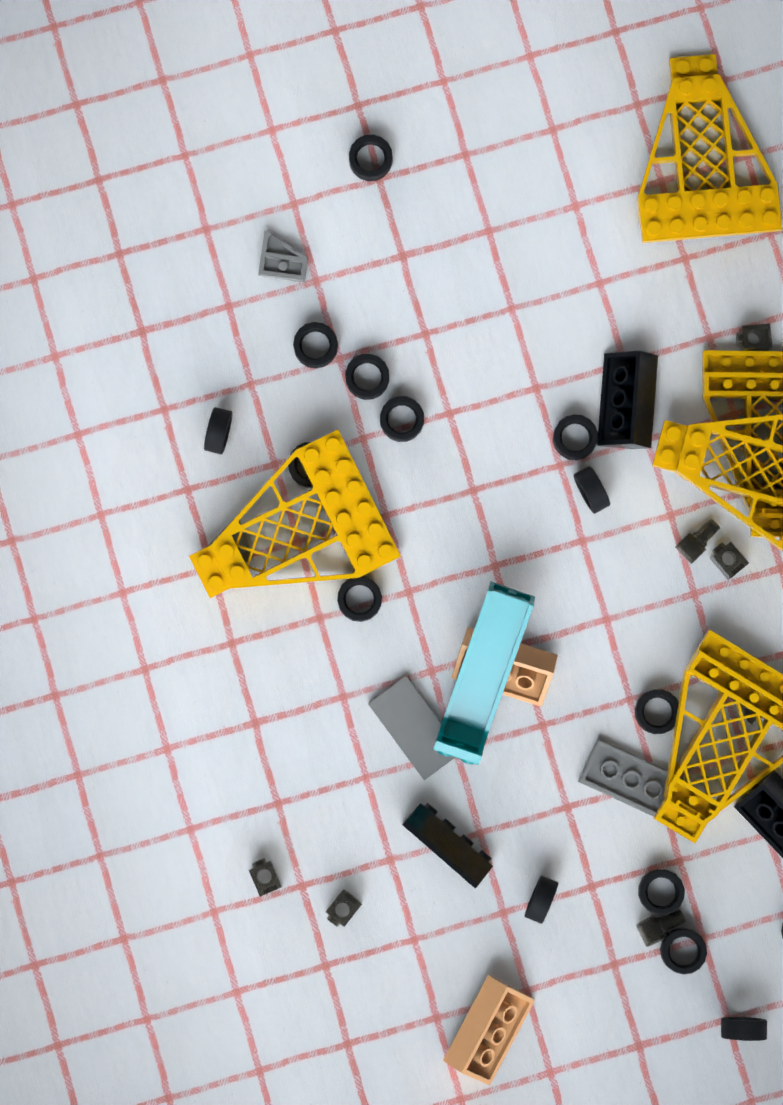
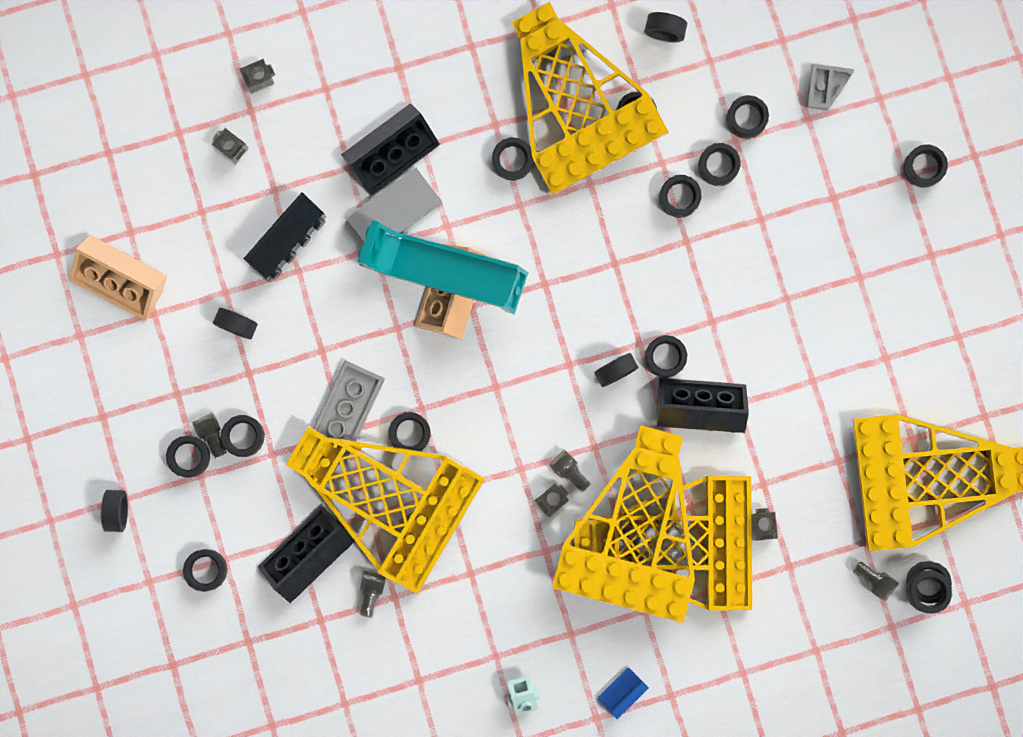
camera: 85 degrees right, 0 degrees up
(348, 731) = (391, 149): none -> black slope

